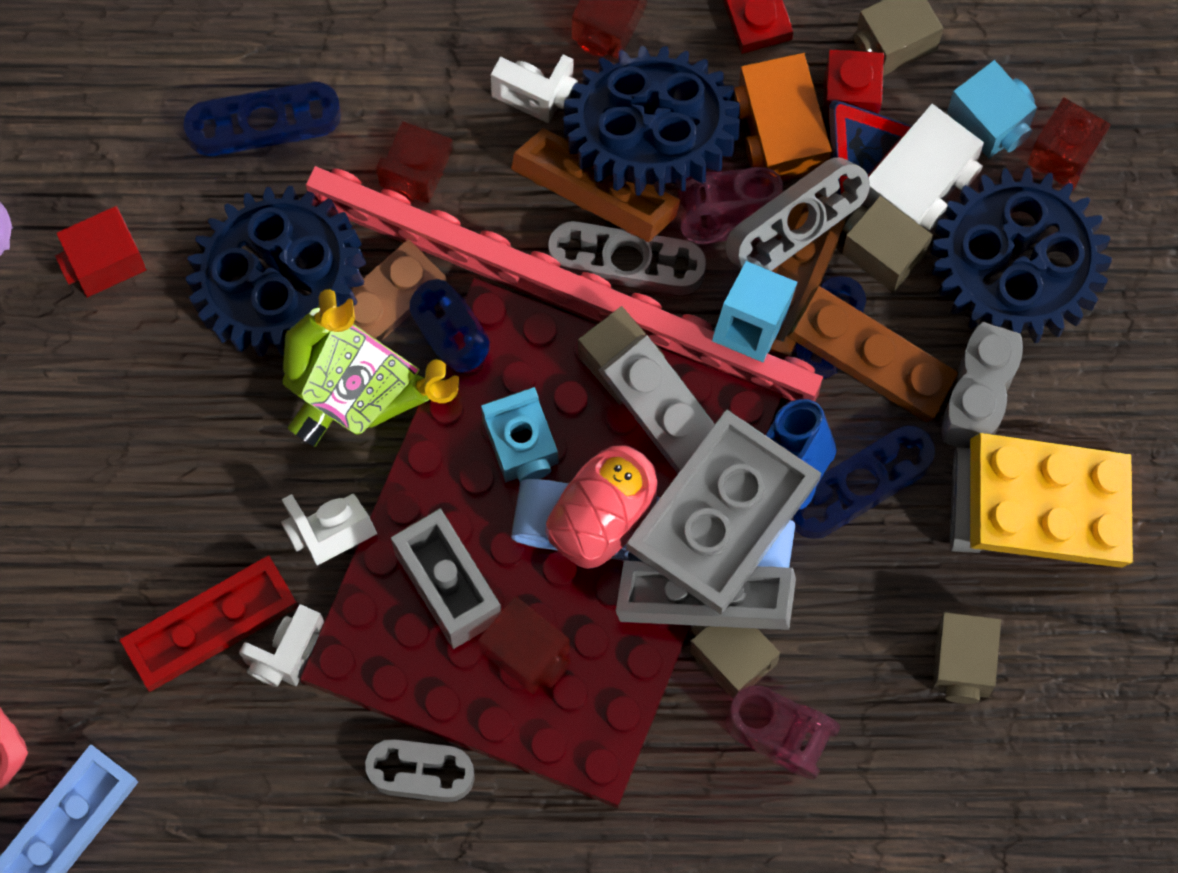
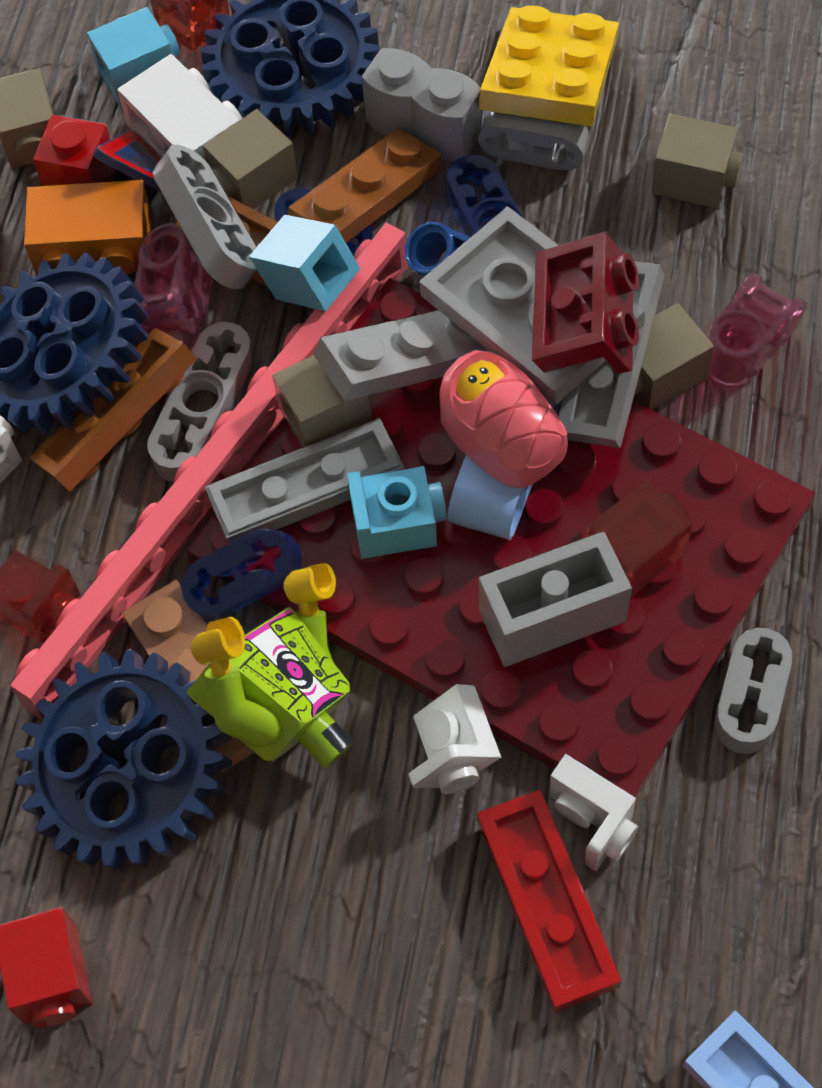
camera: 75 degrees left, 10 degrees down
(544, 360) = (300, 481): none -> light grey tile
(704, 552) = (584, 305): none -> dark red bracket

